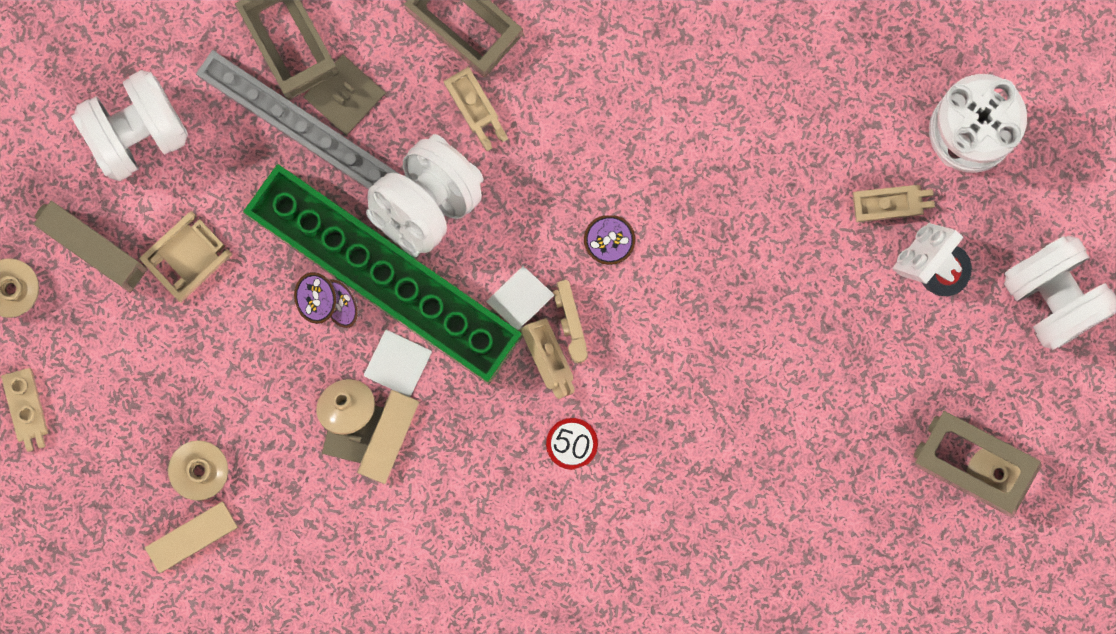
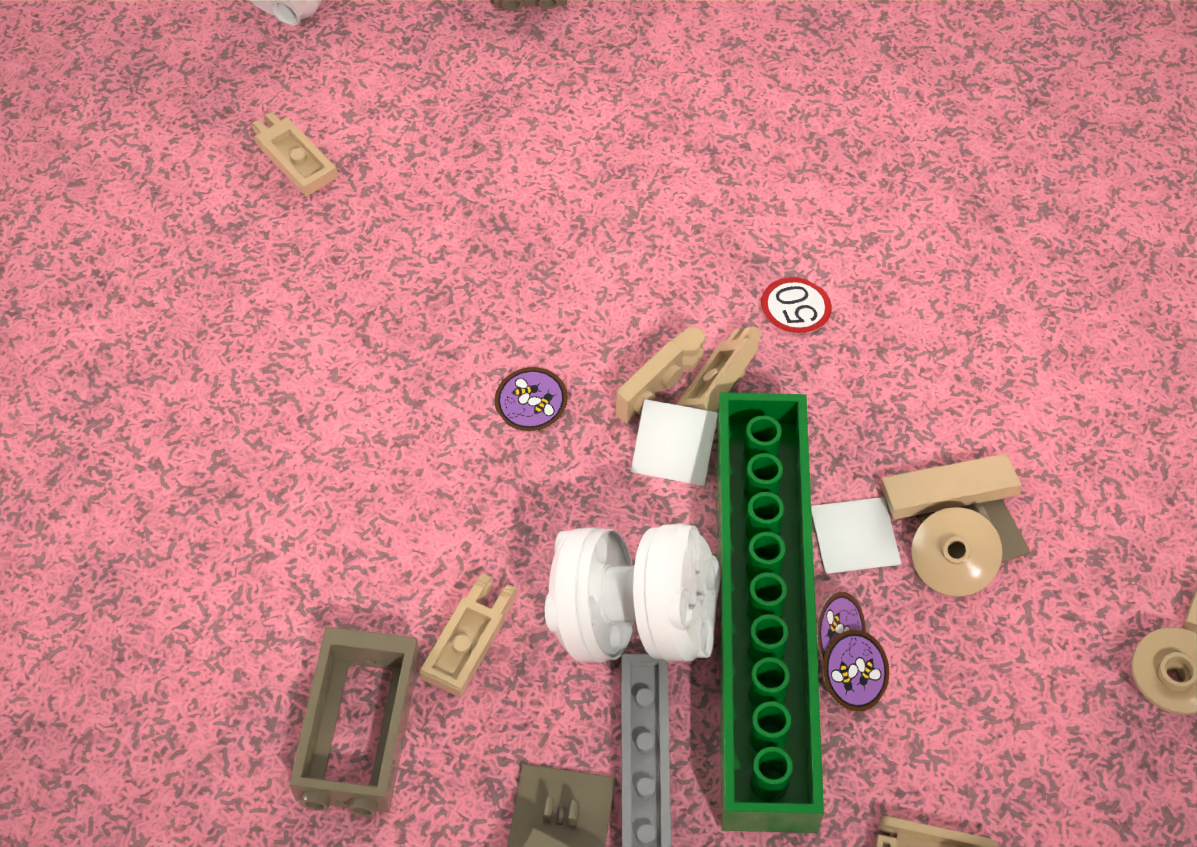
camera: 125 degrees left, 25 degrees down
(936, 261) = (329, 80): white plate -> none
(977, 123) = (146, 94): white piece -> none

